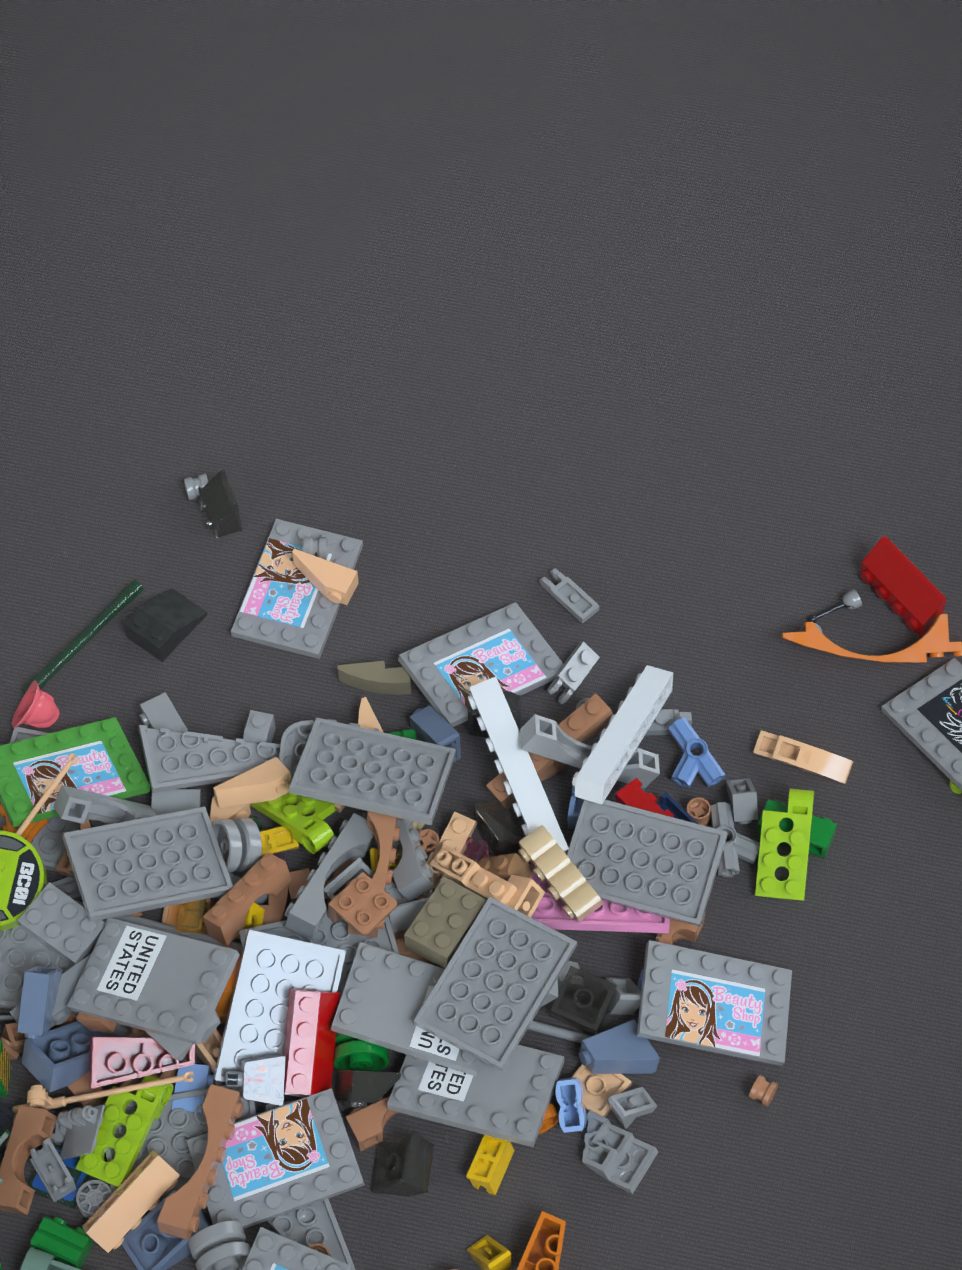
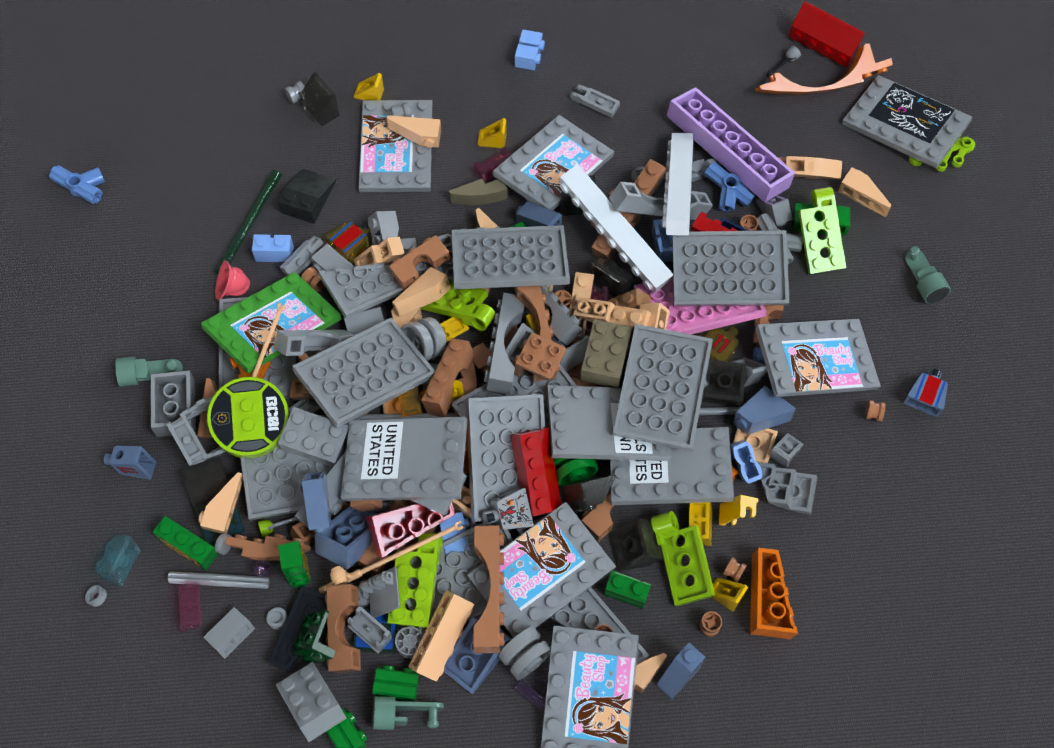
camera: 20 degrees left, 5 degrees up
(100, 682) = (272, 249): none -> light blue piece
(129, 701) = (301, 257): none -> light grey hinge
(131, 731) = (312, 278): none -> nougat wheel
(195, 696) = (349, 240): none -> torso
(229, 723) = (384, 253): none -> light nougat slope
(240, 697) = (383, 225): none -> light grey slope
(244, 749) = (430, 251): none -> nougat arch
(290, 506) = (370, 88): none -> yellow slope
(371, 1215) = (627, 589): none -> green brick
(398, 646) = (485, 169): none -> clear pink hinge
(423, 607) = (493, 135): none -> yellow slope
(442, 1162) = (667, 533): none -> lime hinge
(507, 511) = (529, 49): none -> light blue piece
(509, 1231) = (734, 569): none -> nougat wheel
(536, 1157) = (734, 510): none -> yellow hinge
(560, 873) = (677, 294): tan brick -> none
(573, 671) = (619, 152): hinge -> none
(600, 953) = (723, 343): none -> clear yellow torso
(714, 700) = (730, 144): none -> lavender brick
(839, 1088) = (928, 393): none -> torso
(864, 803) = (862, 190): none -> light nougat slope
(901, 951) = (931, 283): none -> sand green piece

